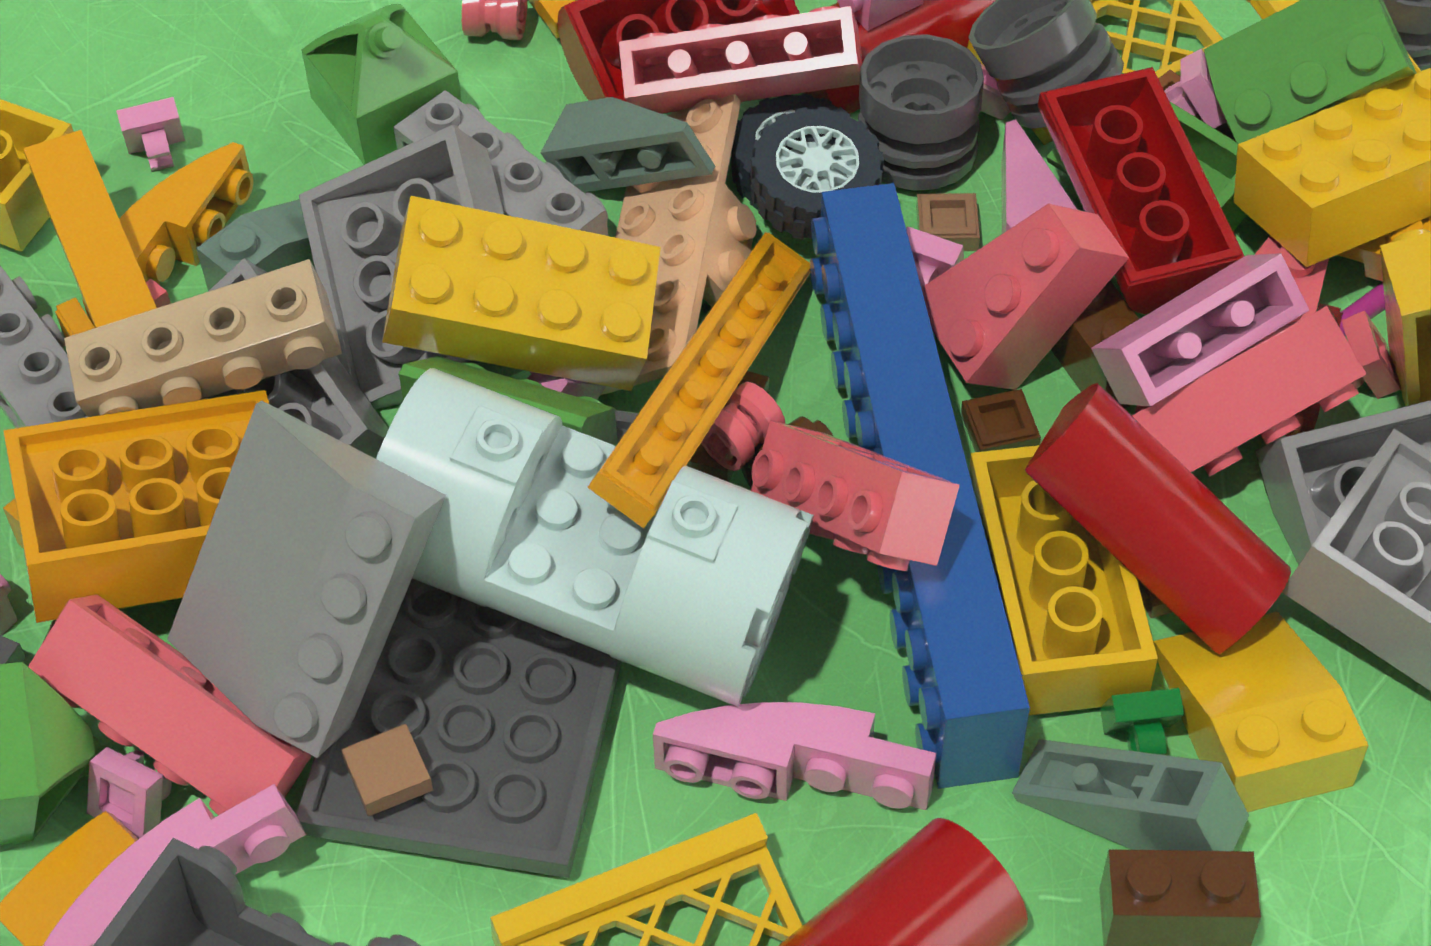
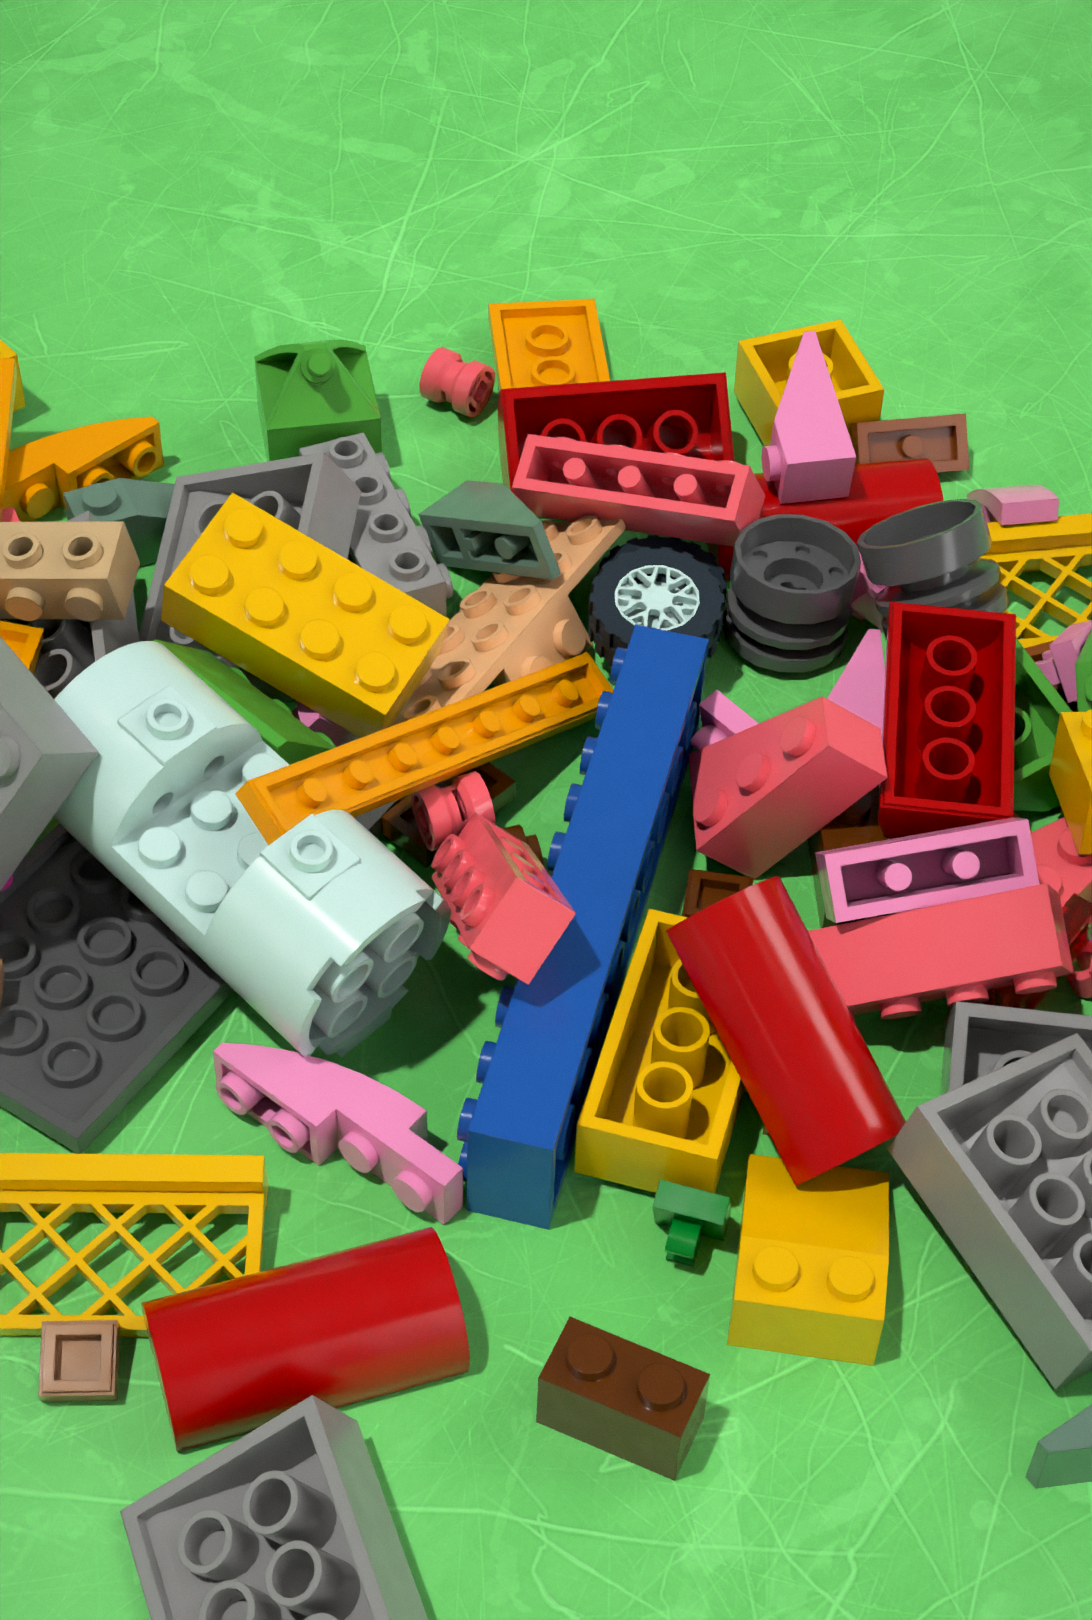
camera: 20 degrees right, 5 degrees down
(152, 129) = (97, 387): bright pink tile -> none
(950, 217) = (773, 695): medium nougat tile -> none
(1135, 796) = (640, 1287): sand green slope -> none

